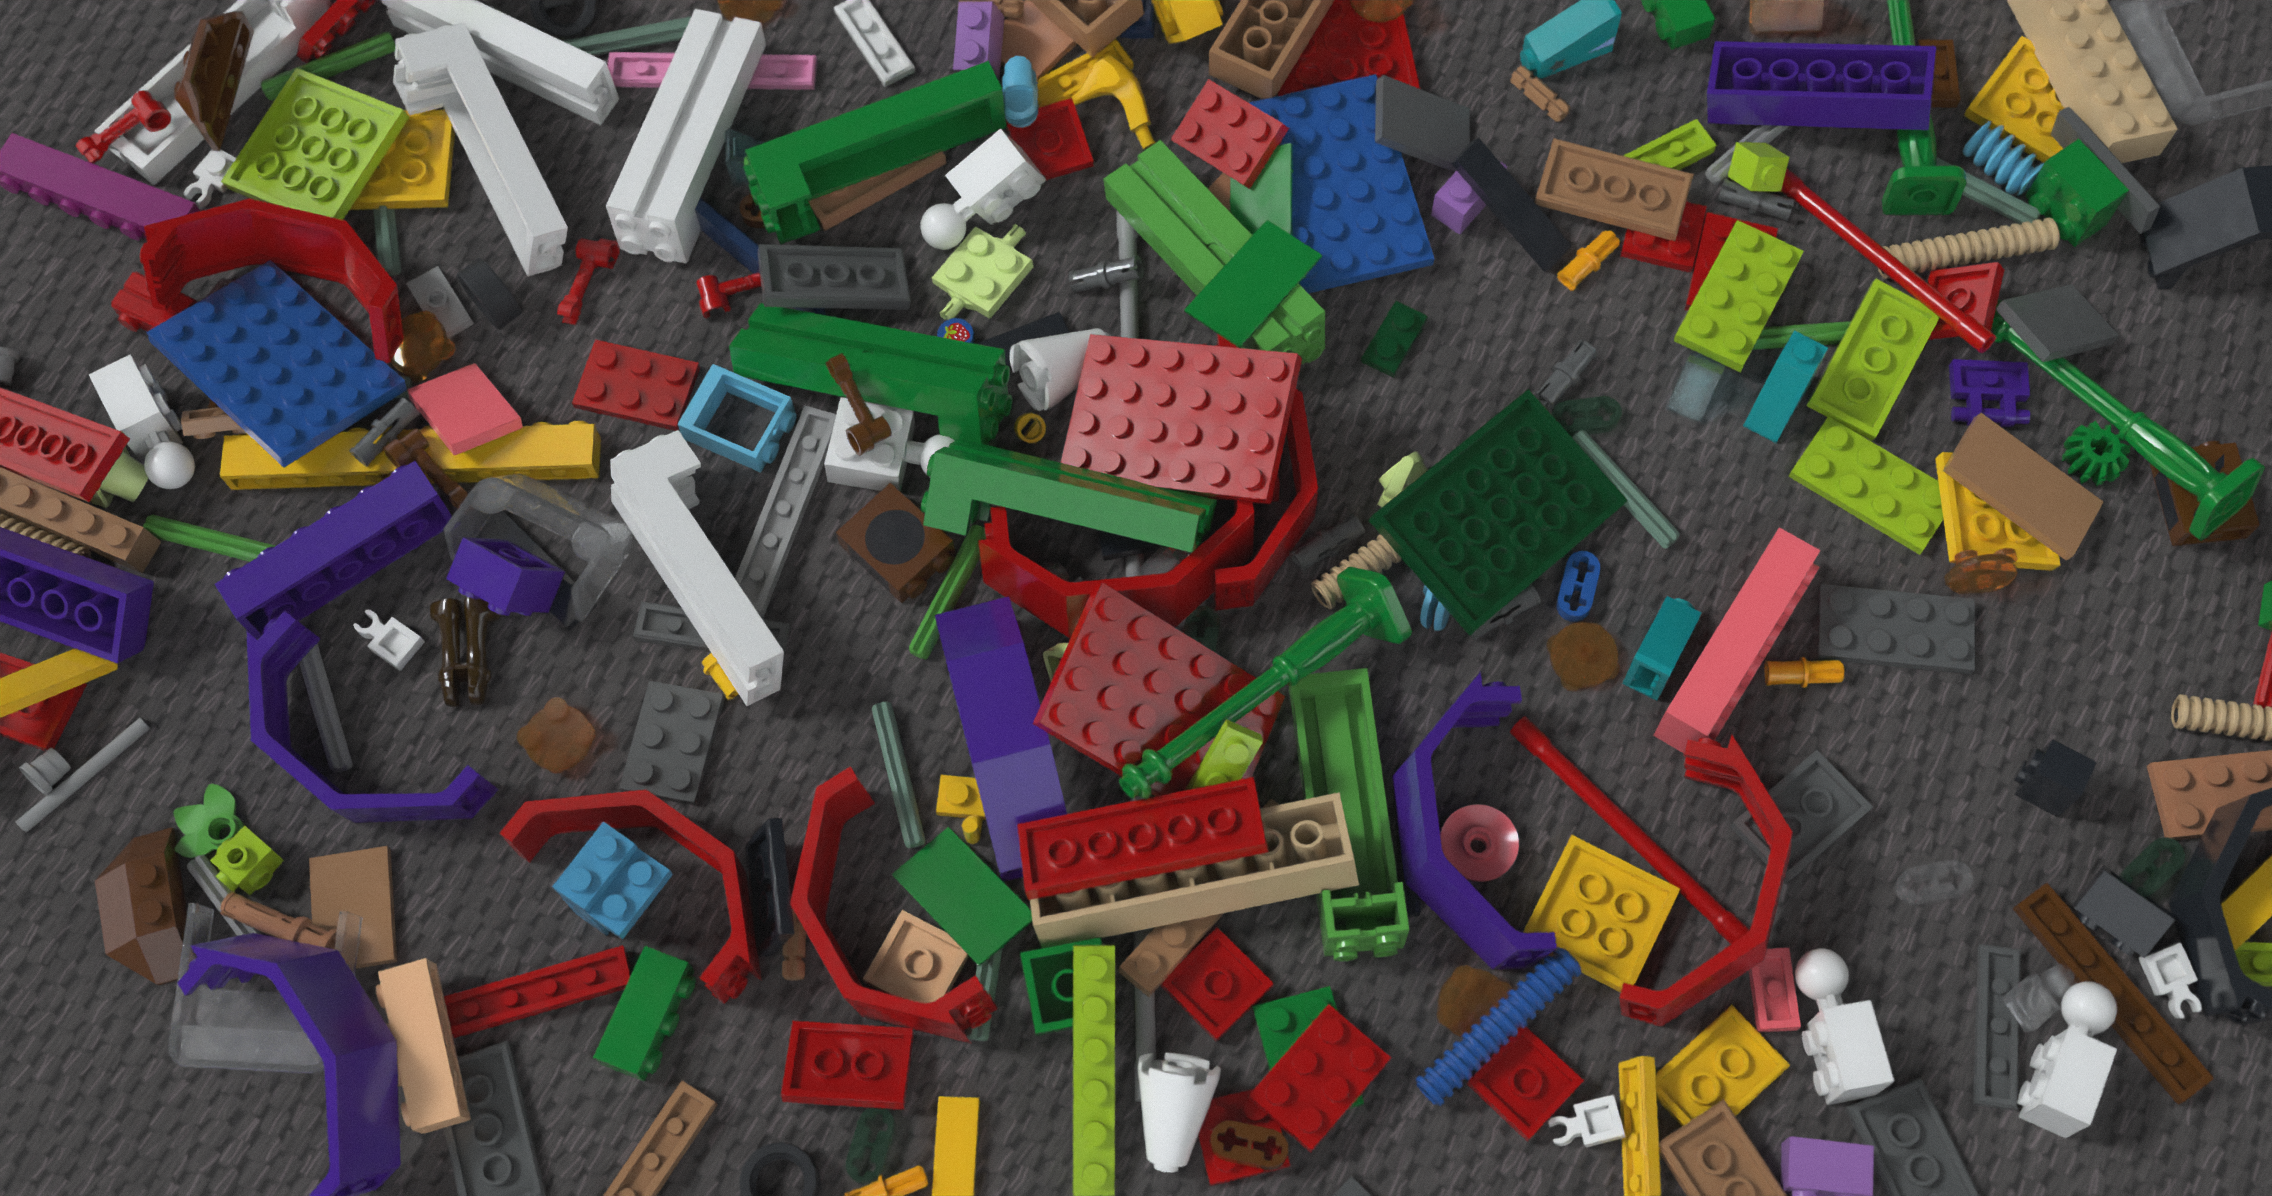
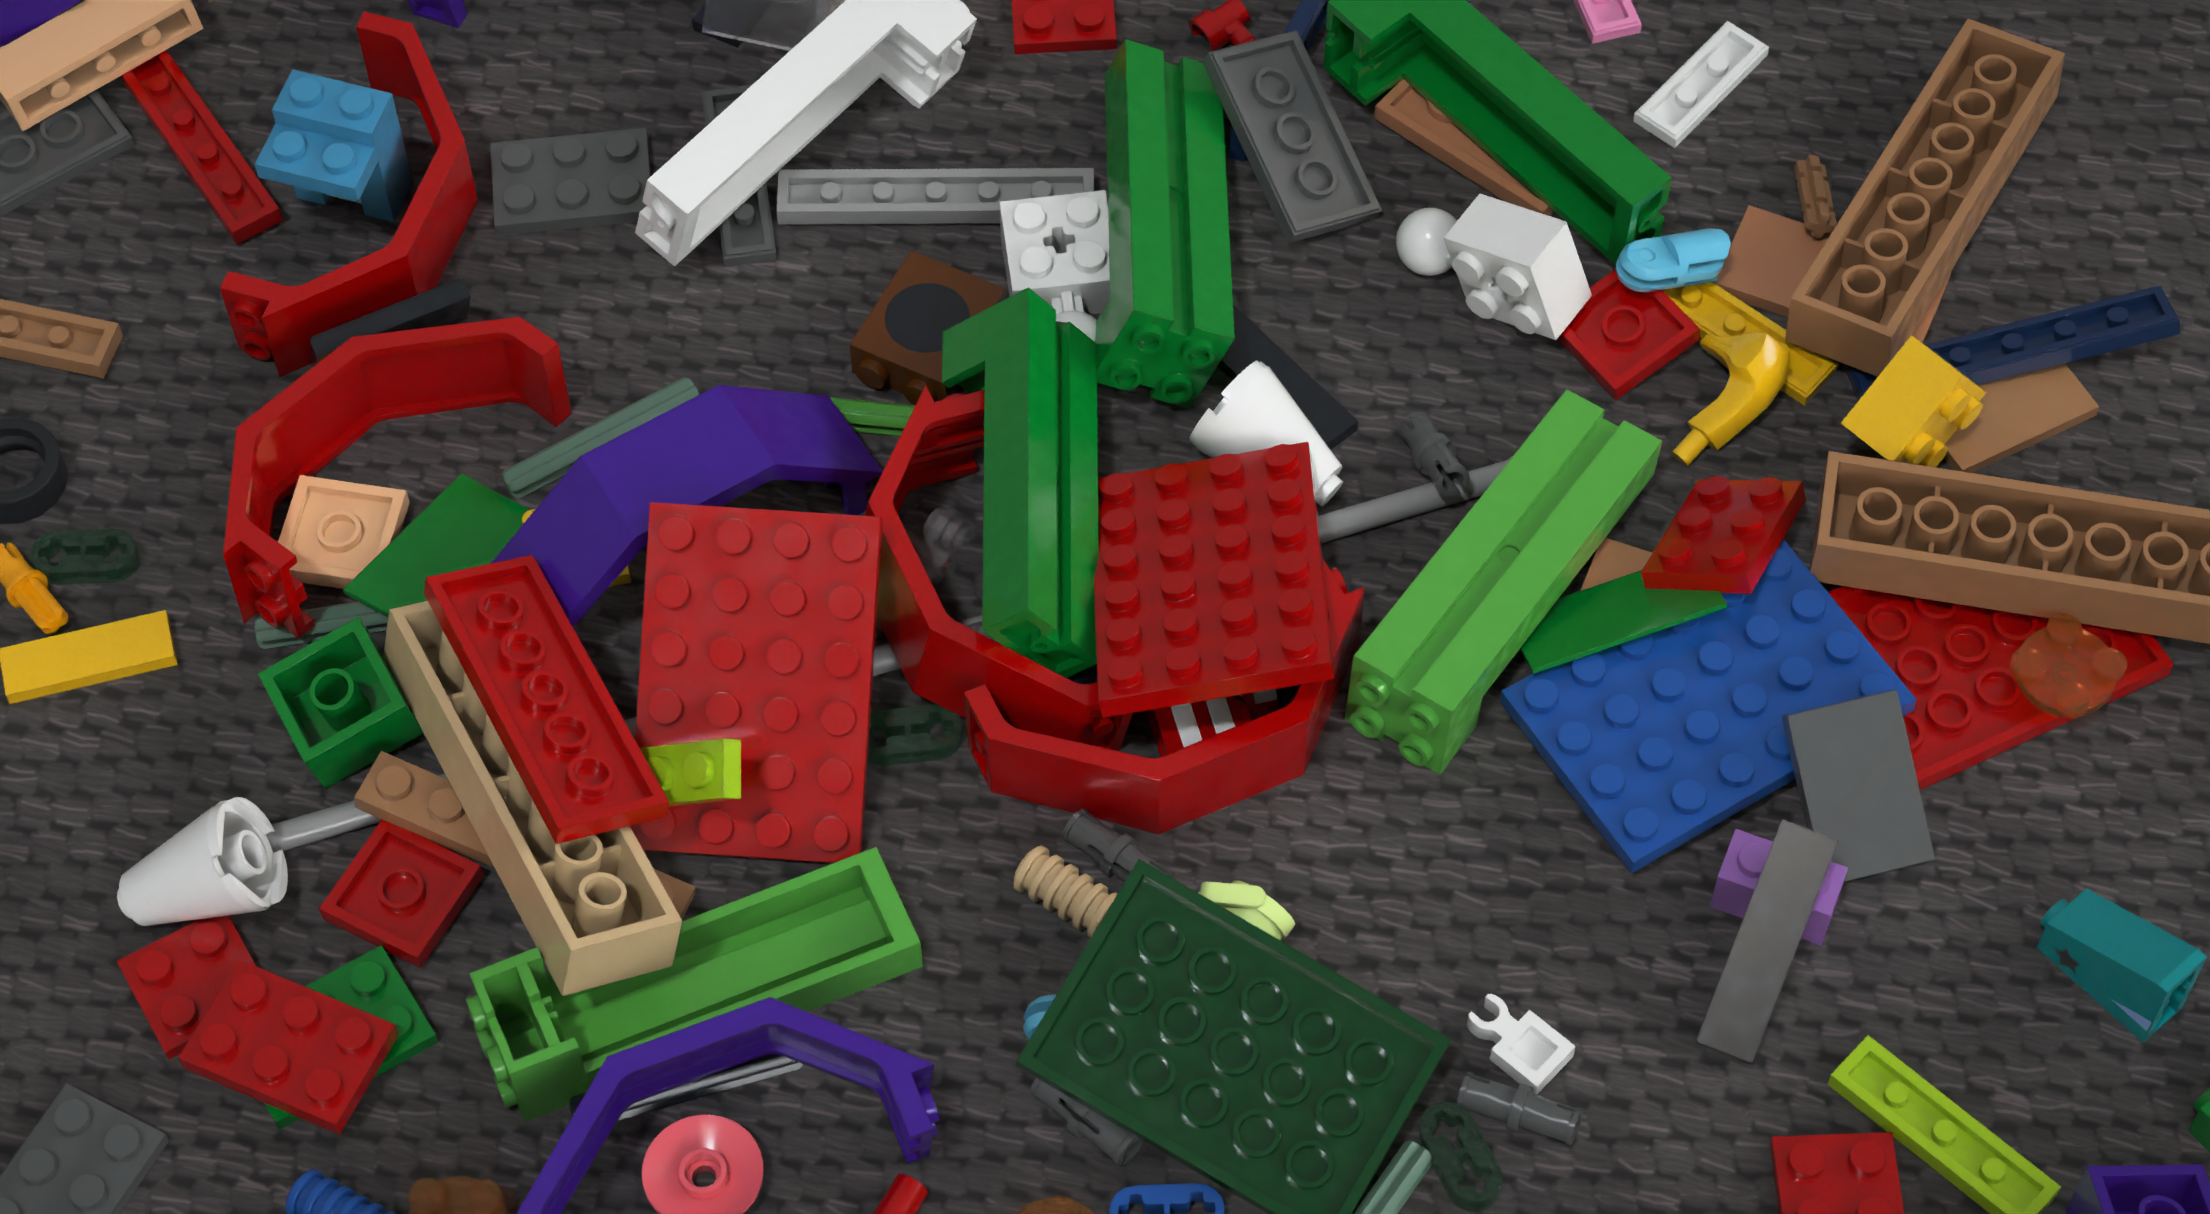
camera: 70 degrees right, 10 degrees down
(557, 736) = (541, 58): clear orange piece -> none
(645, 1014) = (190, 256): green brick -> none
(707, 400) = (1028, 60): medium azure window -> none
(847, 1065) = (175, 491): red plate -> none
(869, 430) = (1055, 224): reddish brown brick -> none
(957, 330) = (1273, 312): tile -> none
(978, 36) = (1738, 189): medium lavender brick -> none
(982, 272) = (1384, 315): yellowish green plate -> none
(1035, 431) = (1165, 423): yellow hinge -> none
(1093, 1070) = (228, 759): lime plate -> none
(1247, 1155) = (158, 983): reddish brown beam -> none
(1253, 283) = (1462, 611): green window -> none
(1369, 610) = (902, 845): green piece -> none
(1394, 339) = (1489, 859): dark green plate -> none
(1526, 357) = (1524, 1048): none -> white plate
(1540, 94) = (2008, 954): medium nougat axle -> none
(1588, 259) = (1737, 1093): light orange axle -> none
(1614, 189) = (1868, 1091): medium nougat tile -> none

